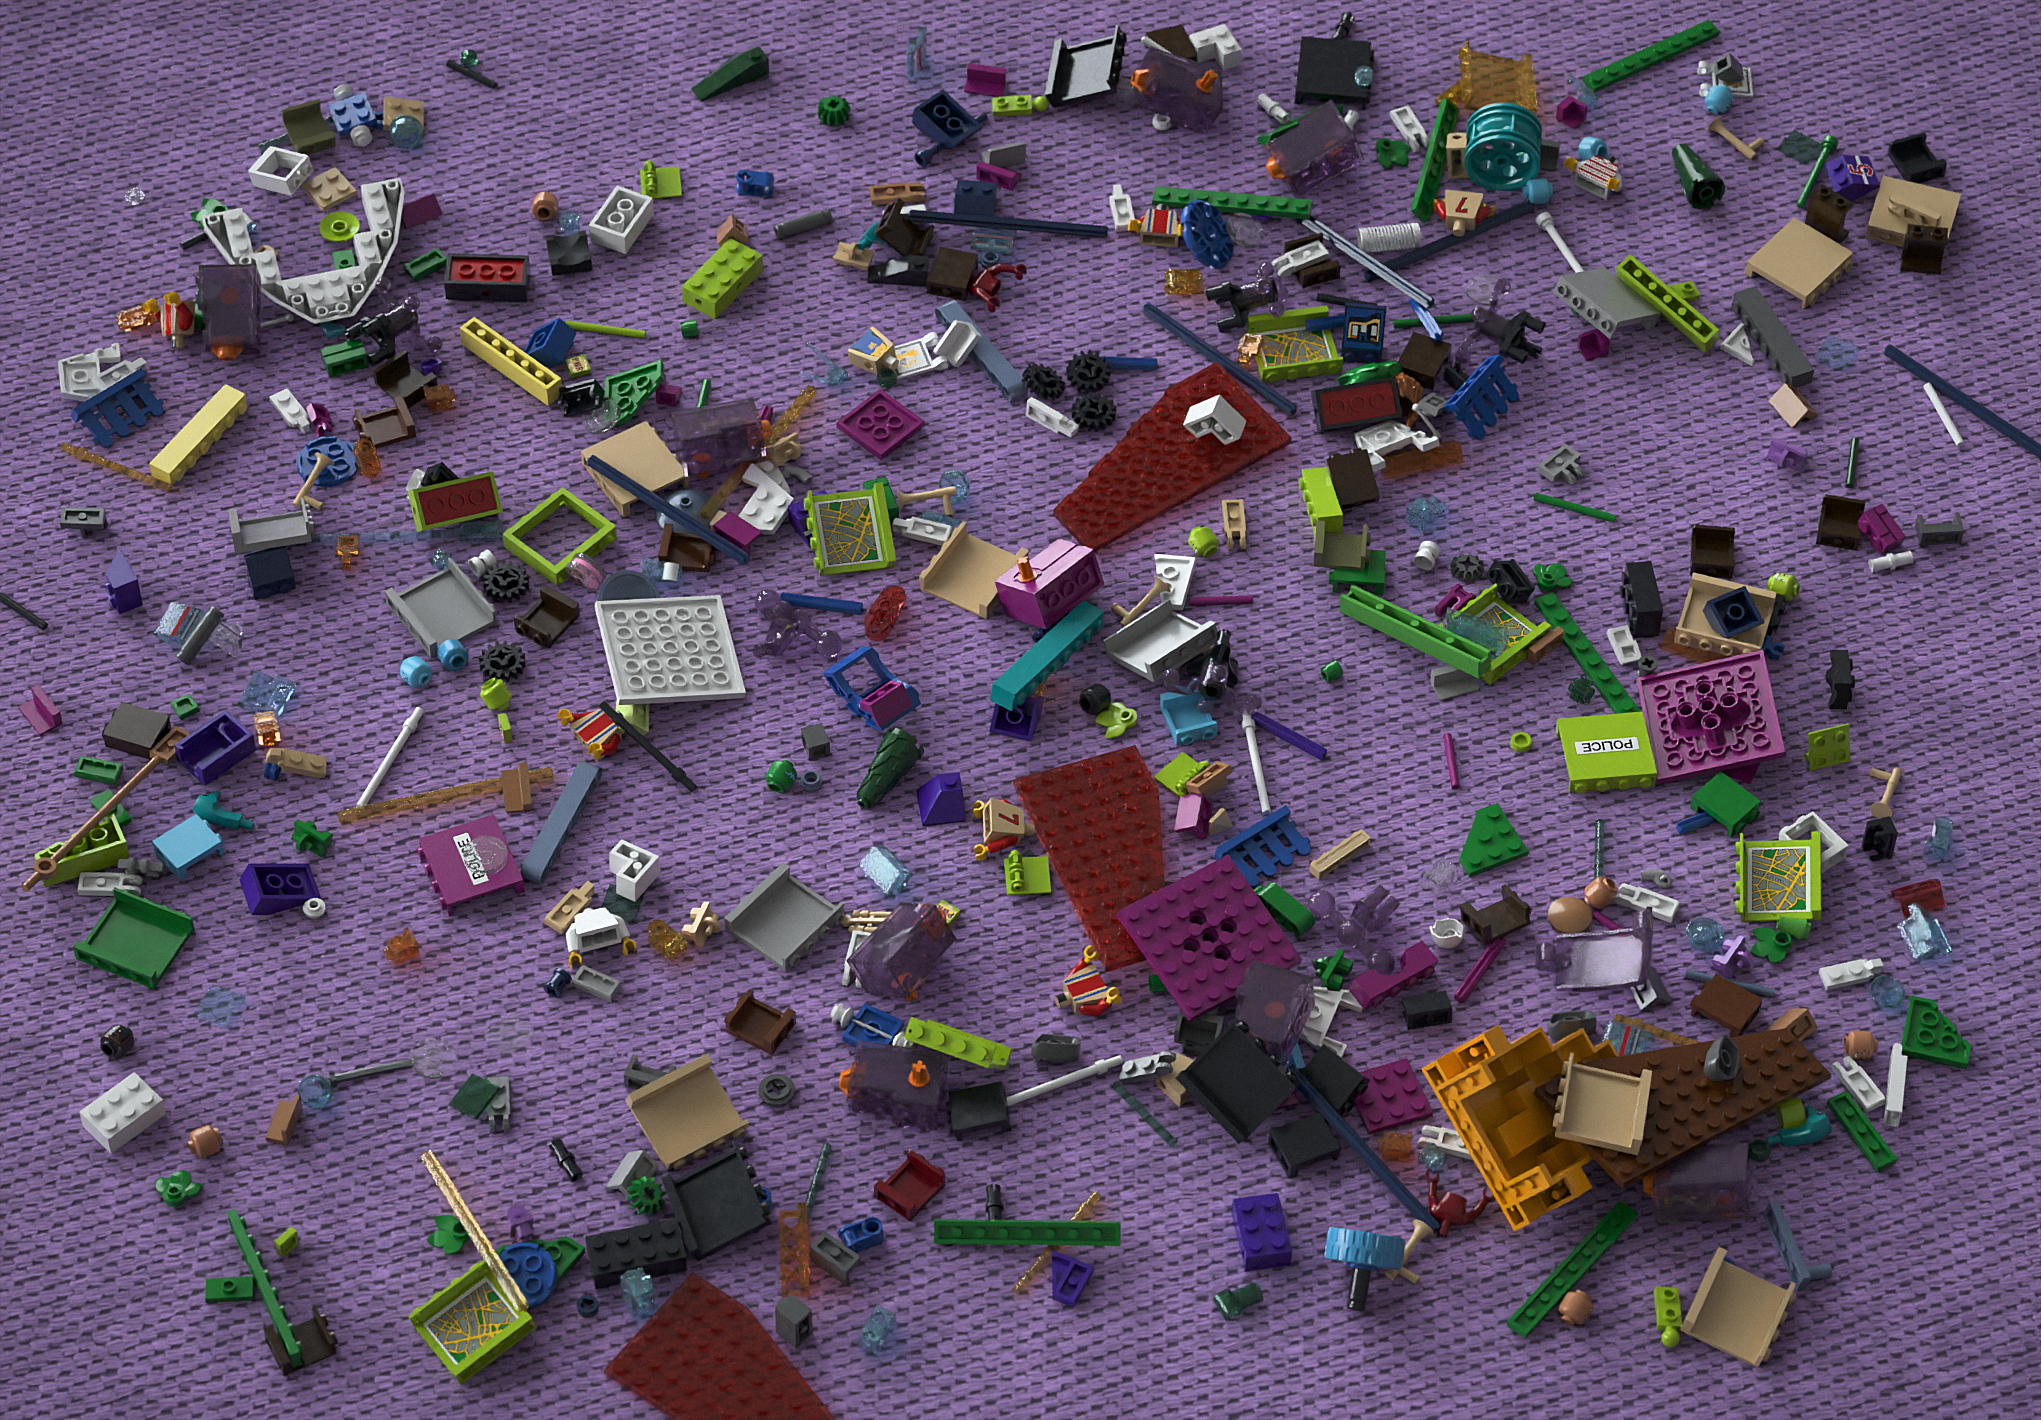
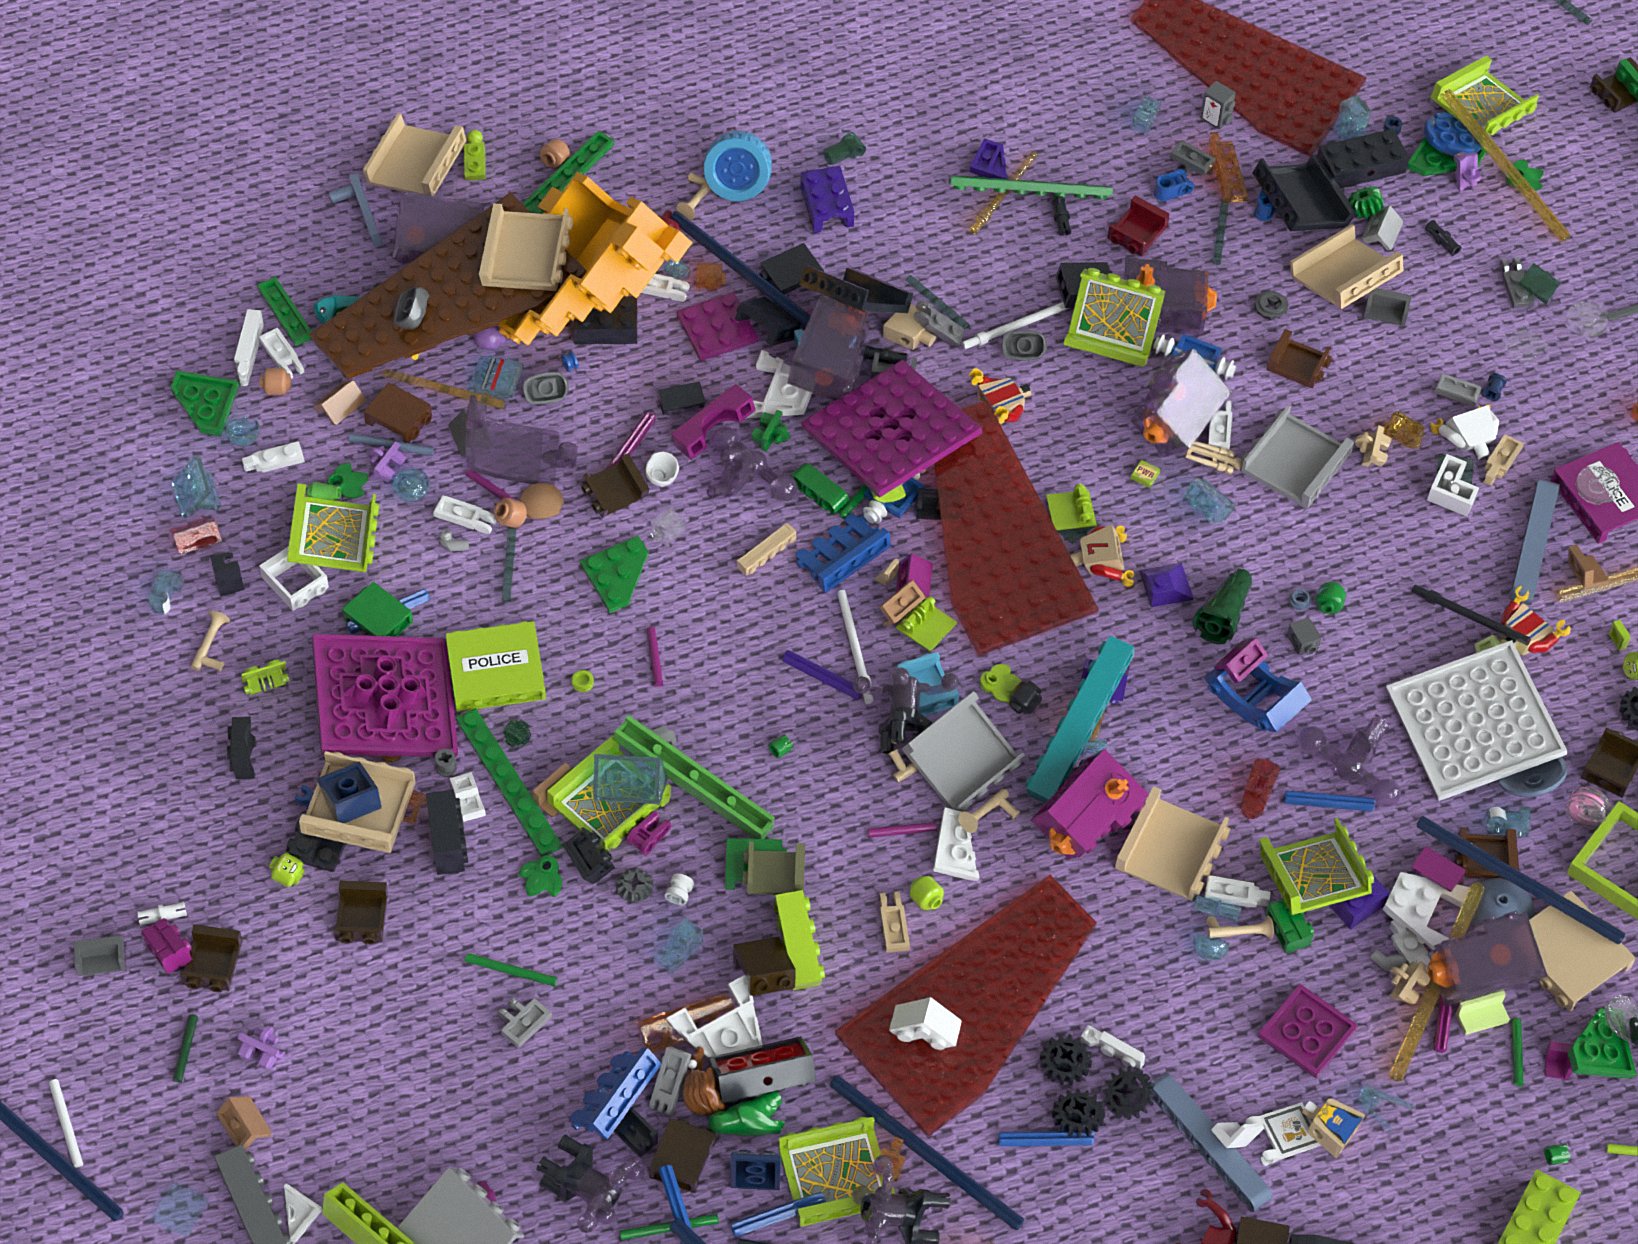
camera: 175 degrees right, 5 degrees up
(886, 378) = (1312, 1094): plate -> none

